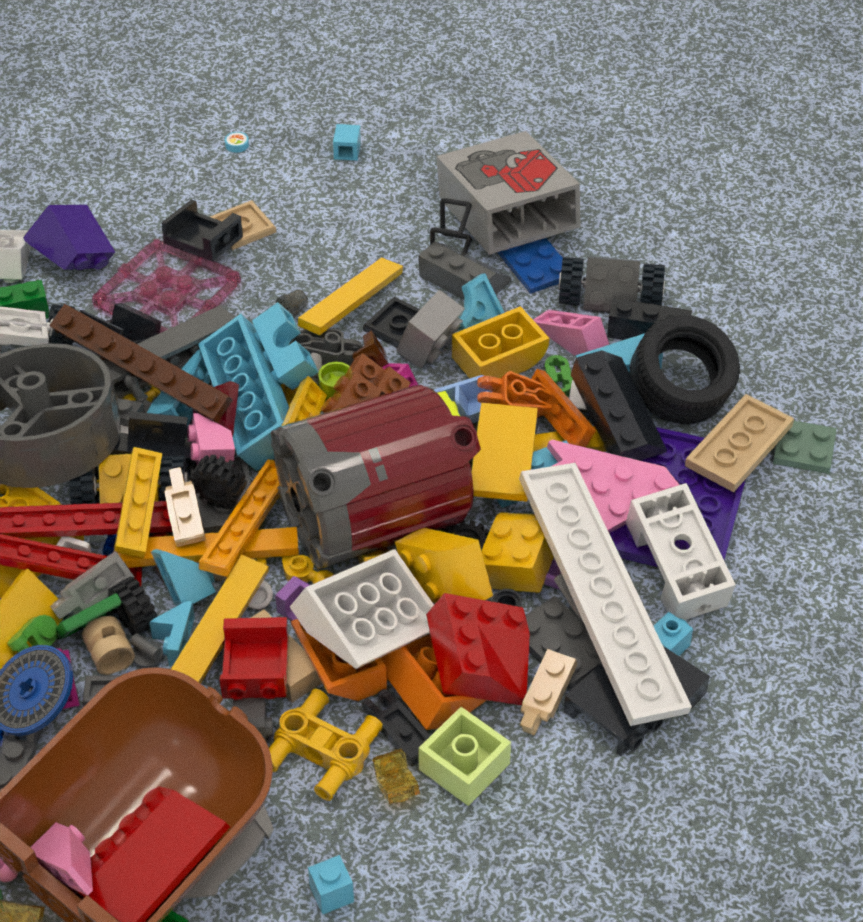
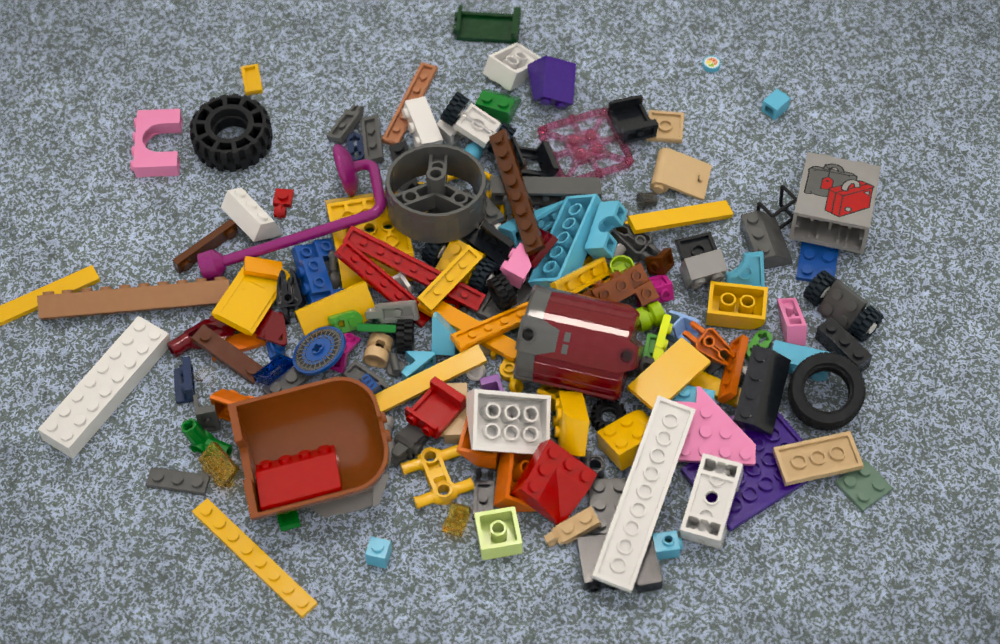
camera: 40 degrees right, 10 degrees up
(65, 857) = (262, 451): bright pink slope -> none
(184, 510) = (469, 297): hinge -> none
(302, 257) = (680, 173): none -> tan door

